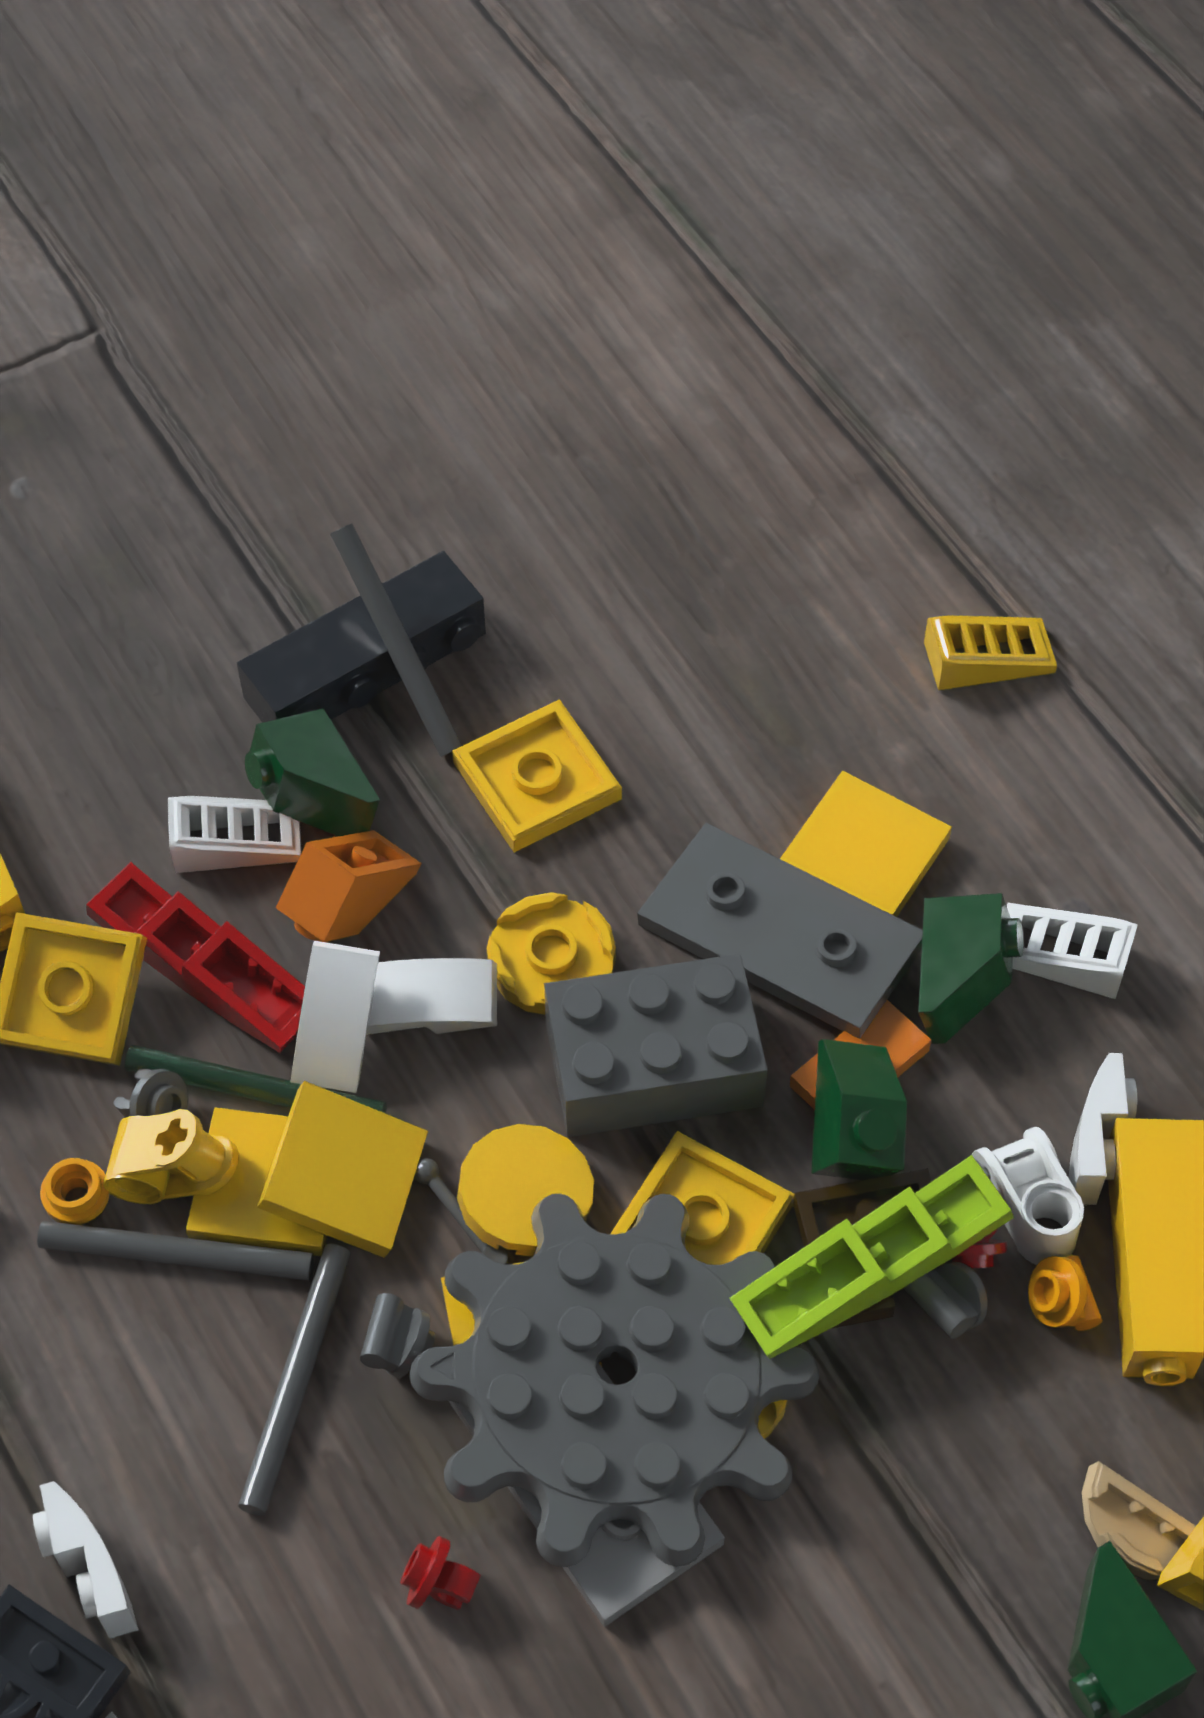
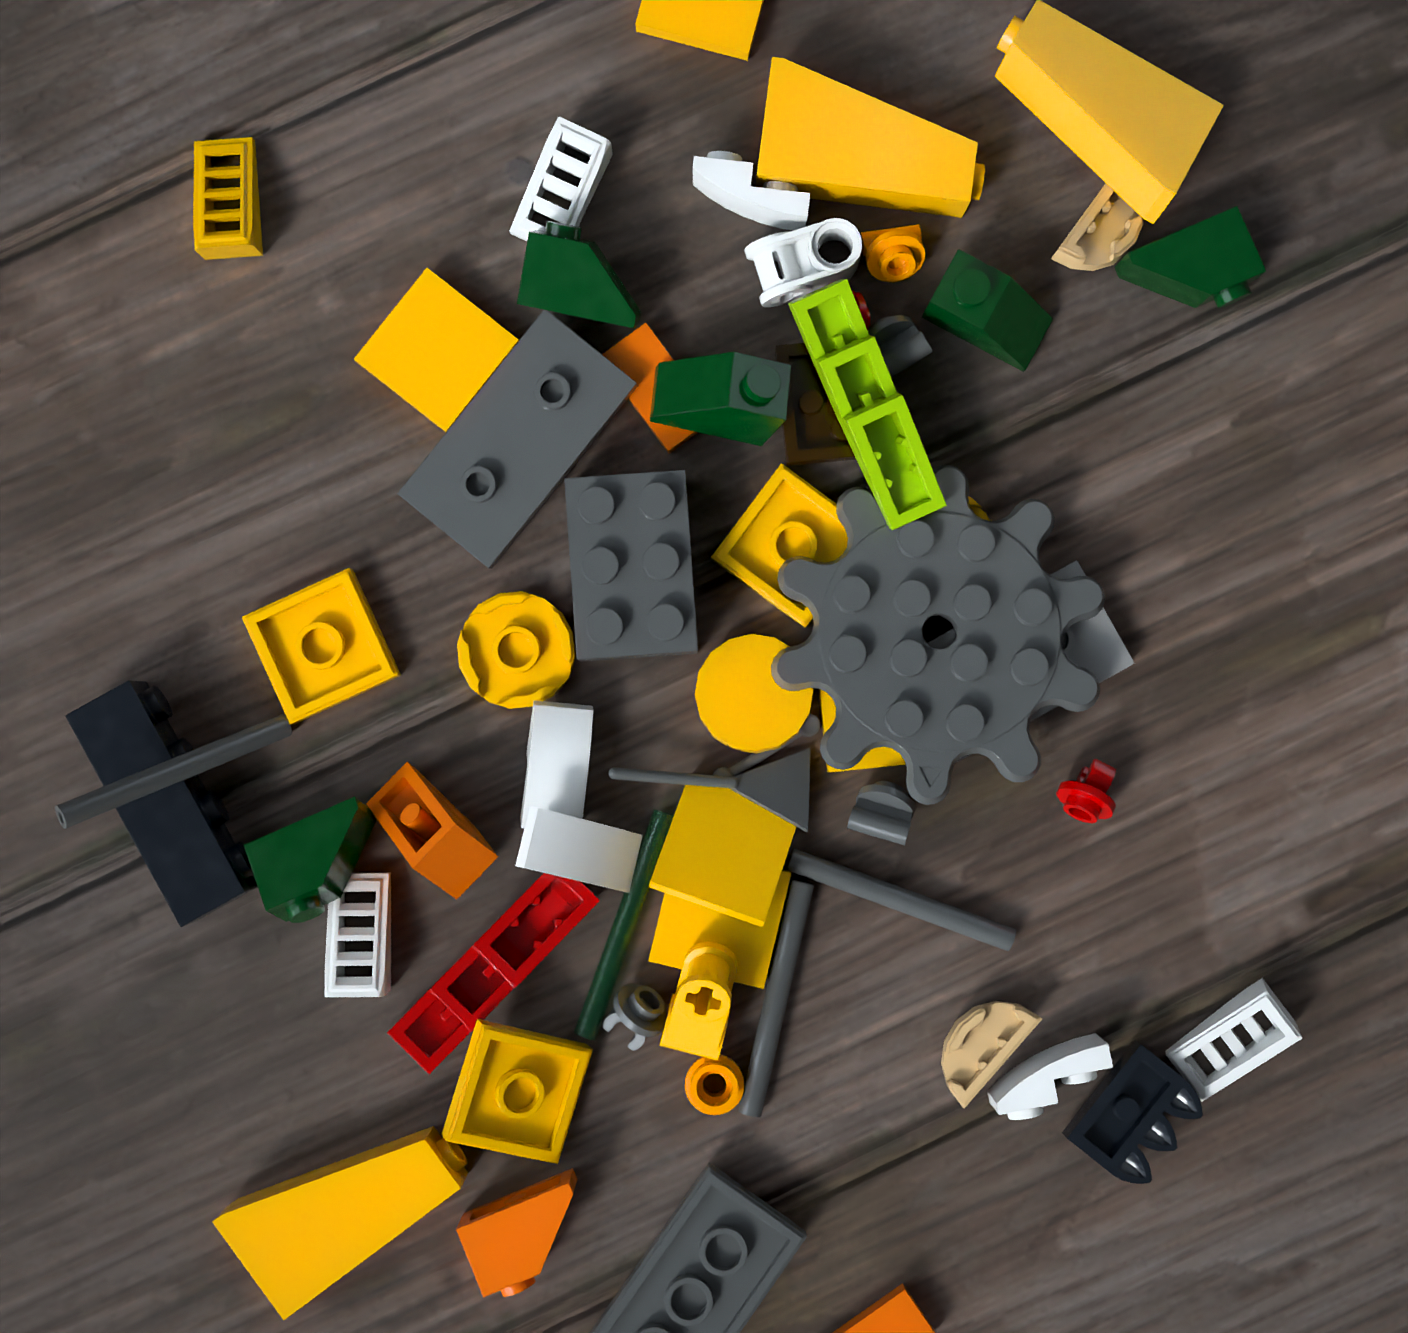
camera: 90 degrees left, 30 degrees up
(122, 1479) = (982, 1044): none -> tan plate
(419, 1223) = (777, 786): none -> dark grey piece
(1011, 1400) = (988, 311): none -> dark green slope

